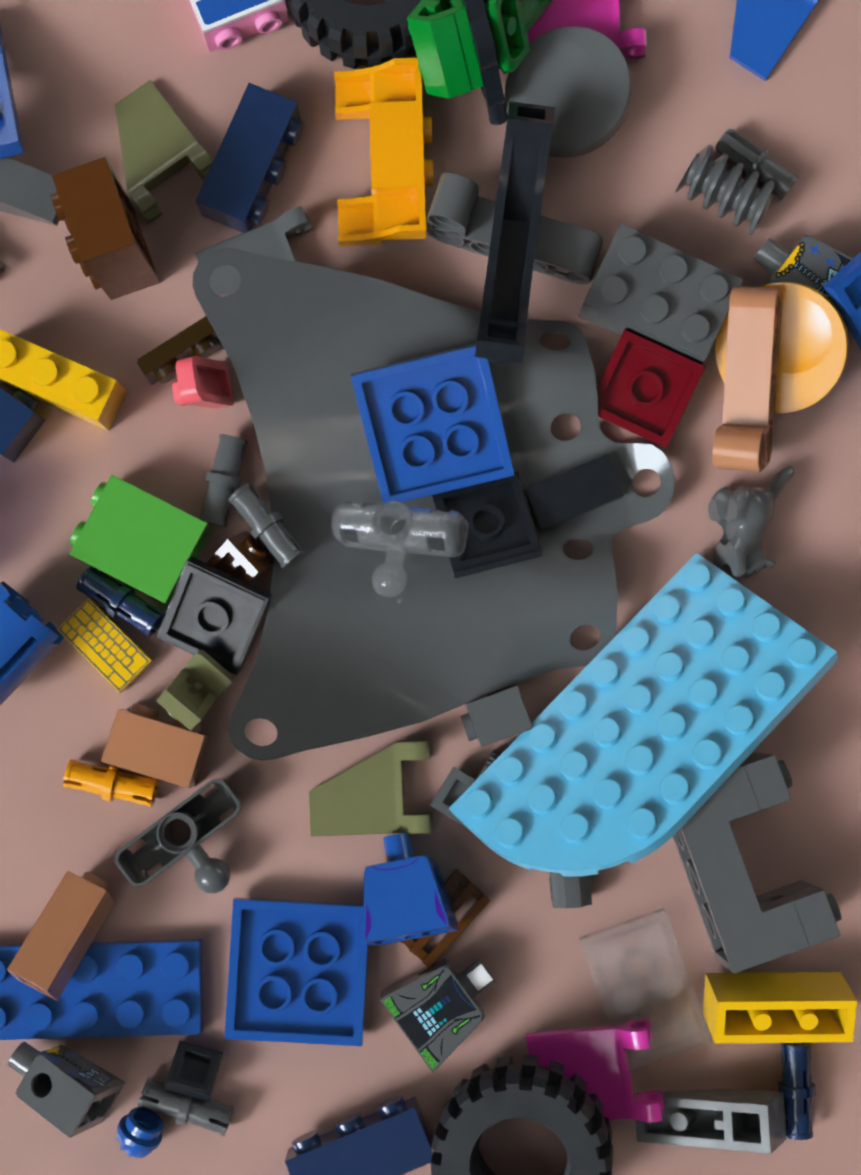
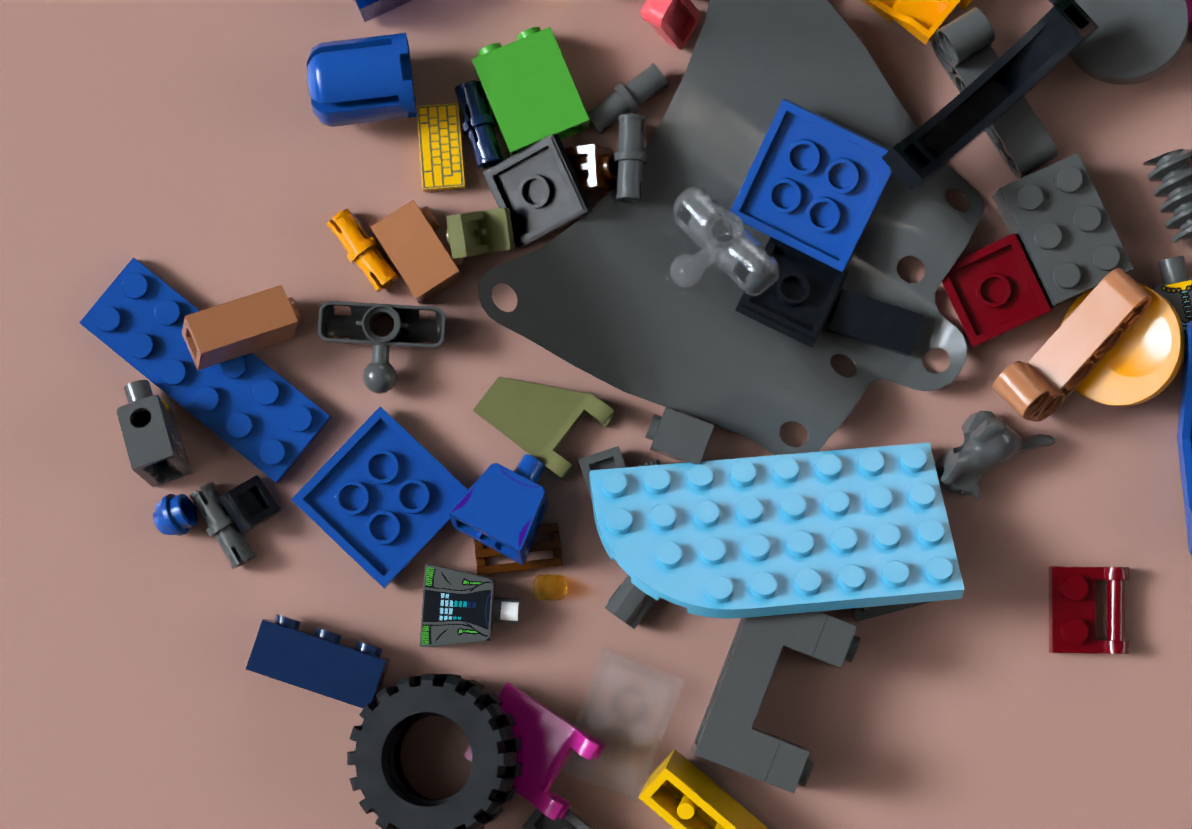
camera: 45 degrees right, 0 degrees up
(494, 926) = (550, 587): none -> clear yellow rock

